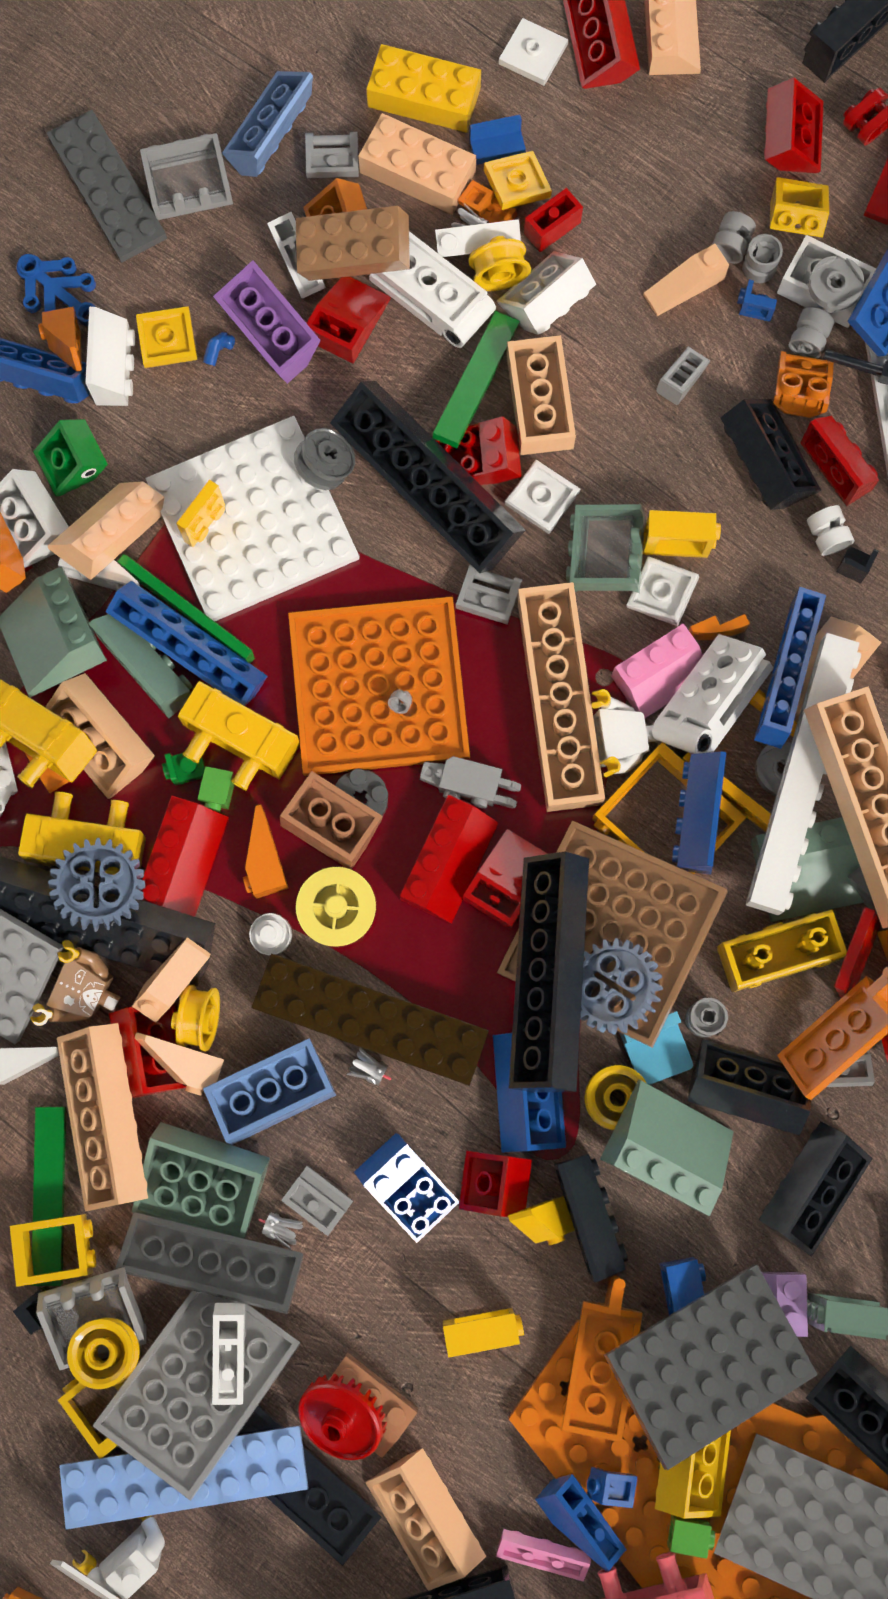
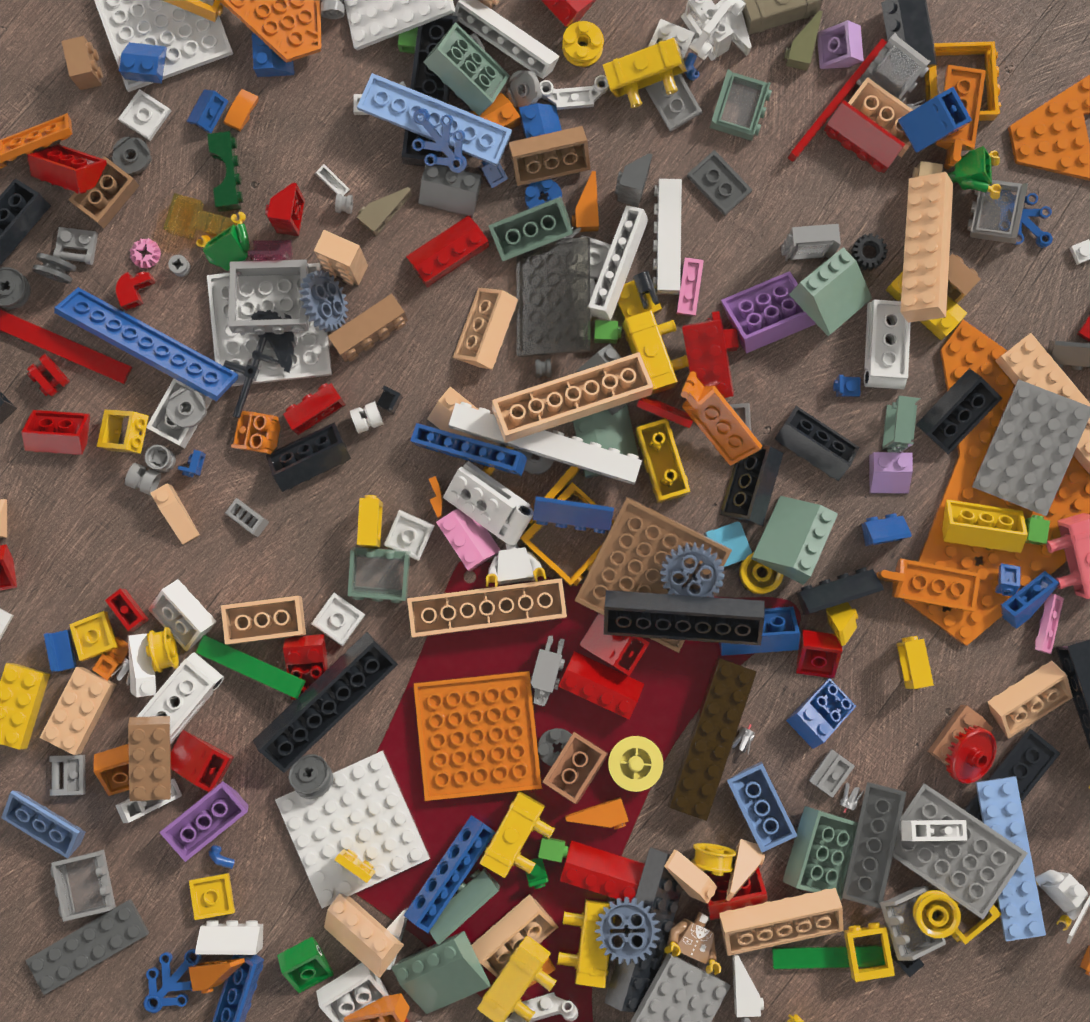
camera: 90 degrees left, 5 degrees up
(185, 608) = (421, 875): green tile -> none
(270, 934) = (653, 808): white plate -> none
(395, 704) = (491, 720): light grey hinge -> none
(485, 600) = (416, 658): light grey plate -> none
(706, 1017) = (707, 512): light grey wheel -> none
(710, 1366) = (934, 516): dark grey plate -> none
(811, 332) = (216, 424): light grey wheel -> none

